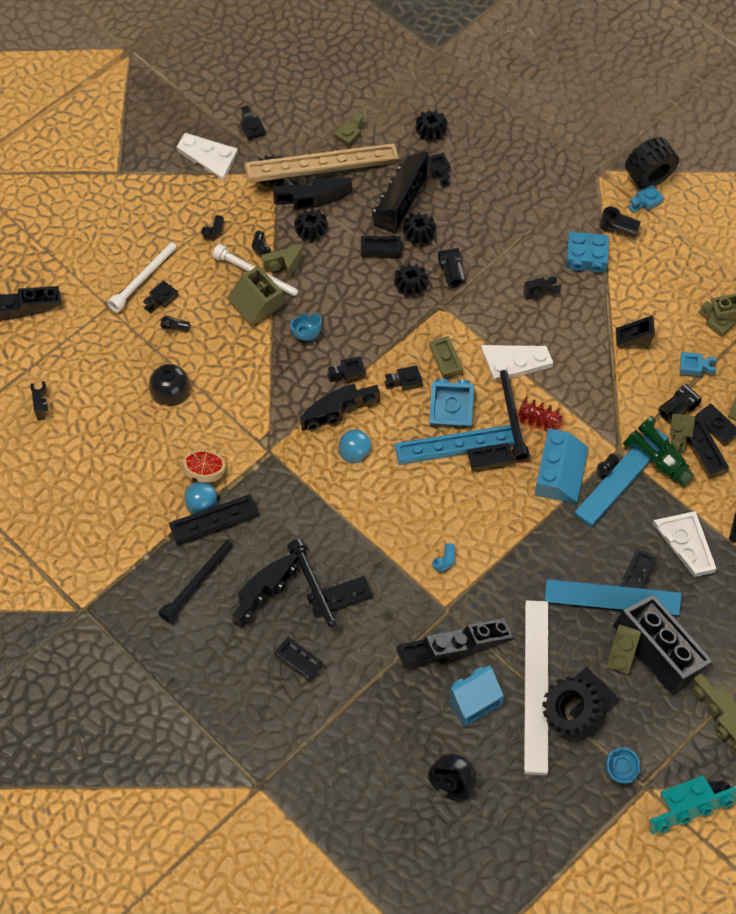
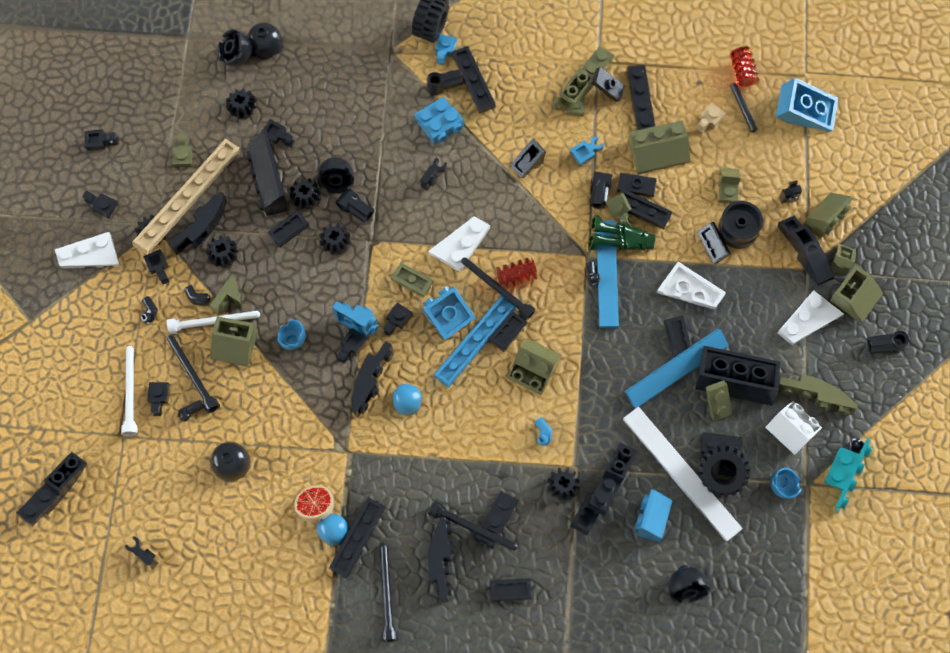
camera: 40 degrees left, 10 degrees up
(195, 331) = (209, 403): none -> black piece
(251, 197) = (156, 264): none -> black plate
(292, 74) = (97, 139): none -> black plate
(370, 350) = (359, 319): none -> dark azure plate
(430, 614) = (558, 489): none -> black gear
(456, 230) = (335, 175): none -> black cylinder
(465, 80) = (234, 49): none -> black cylinder
(485, 499) = (533, 366): none -> olive slope
(495, 91) = (265, 40): none -> black cylinder
(561, 467) = (562, 300): dark azure slope -> none
(647, 239) = (473, 79): none -> black plate
(675, 726) = (793, 427): none -> white slope

